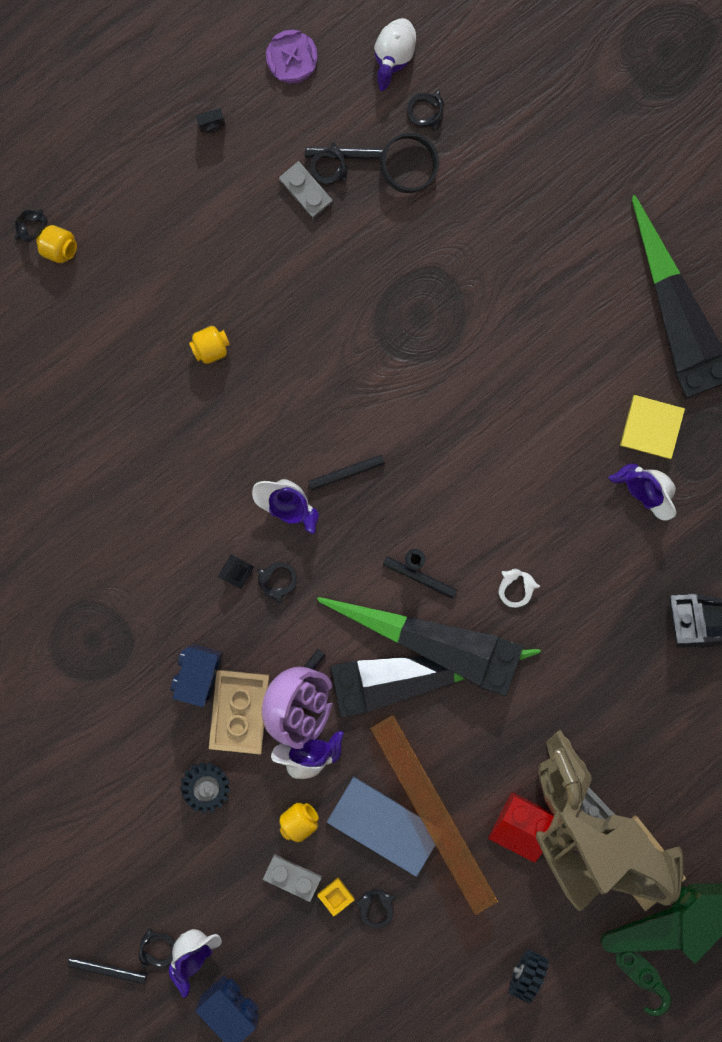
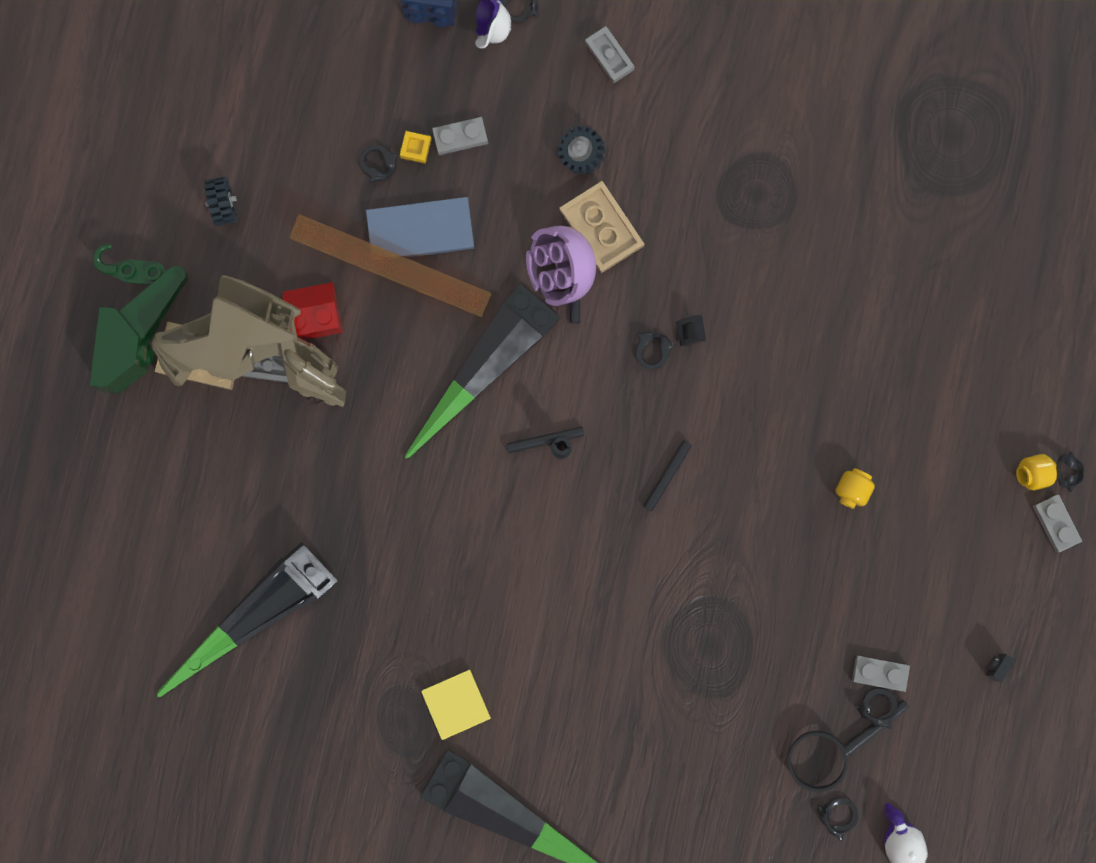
camera: 140 degrees right, 5 degrees down
(73, 193) = (1057, 523): none -> light grey plate
(118, 848) = (609, 54): none -> light grey plate
(196, 675) = (657, 227): dark blue brick -> none
(286, 502) = (695, 414): dark purple hair -> none
(291, 56) = (979, 772): medium lavender tile -> none
(298, 822) = (489, 180): yellow head -> none
(310, 759) = (518, 234): hair -> none
(467, 653) = (457, 409): black plate -> none
(529, 586) = (454, 500): white piece -> none
(650, 488) = (422, 653): dark purple hair -> none

